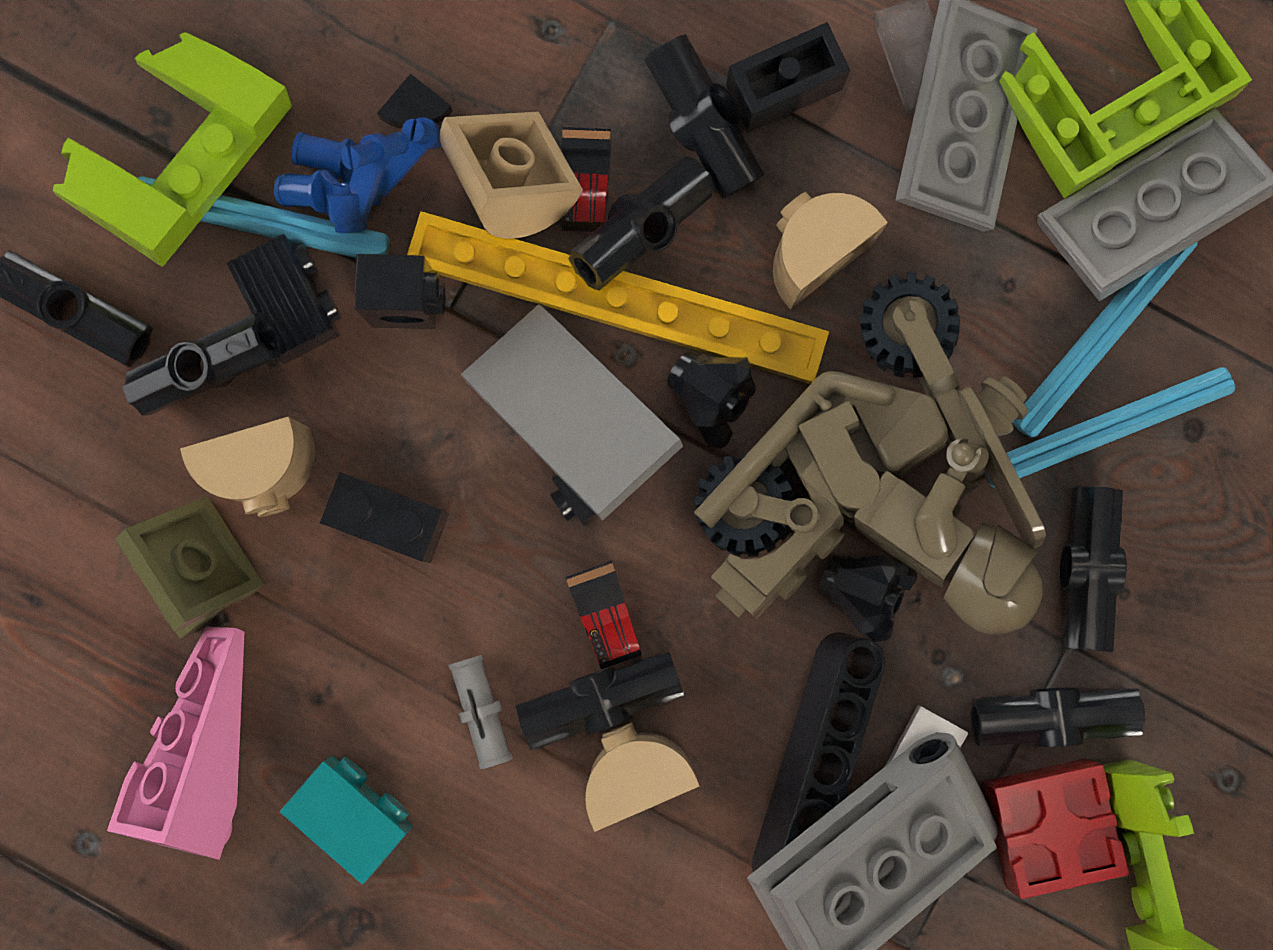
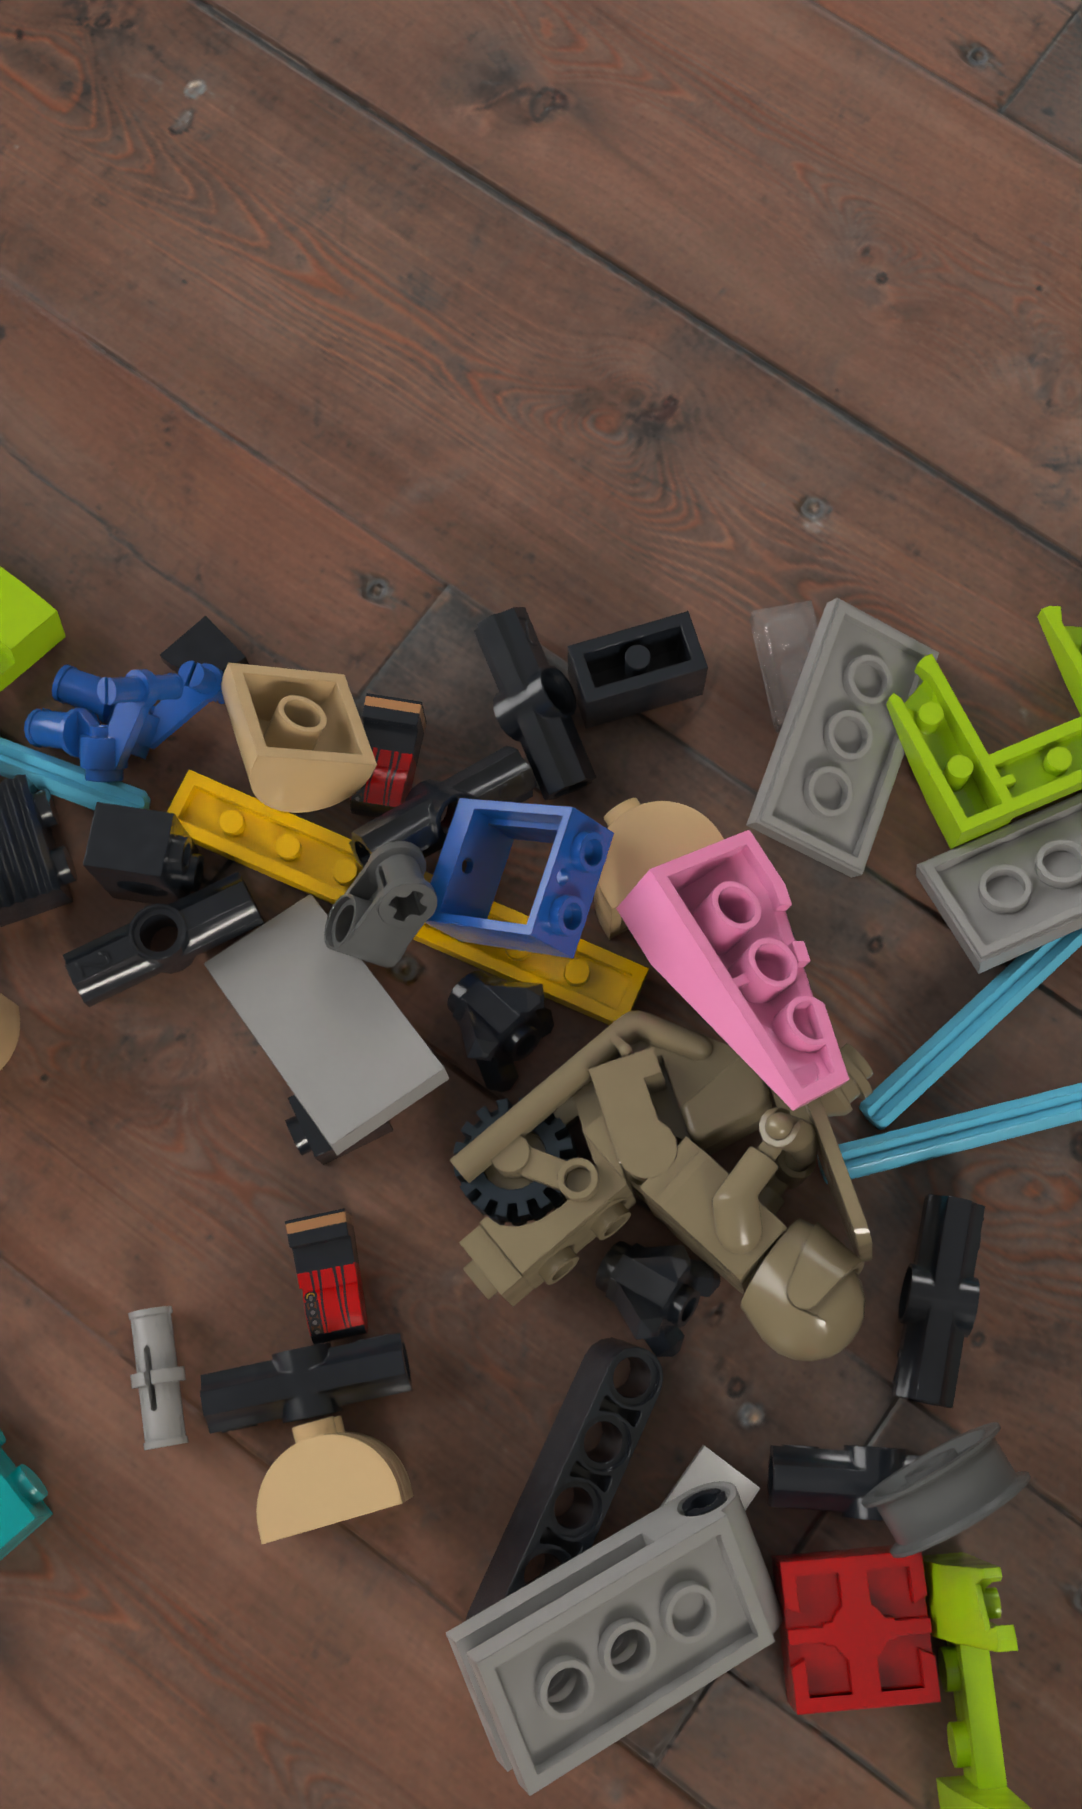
camera: 10 degrees right, 10 degrees down
(384, 518) = (82, 1122): black brick -> none
(393, 377) = (125, 954): none -> black piece
(607, 310) = (382, 906): none -> dark grey piece
(680, 241) = (483, 837): none -> blue window
(900, 312) = (727, 947): none -> bright pink wedge
(1121, 719) = (946, 1490): none -> dark grey wheel

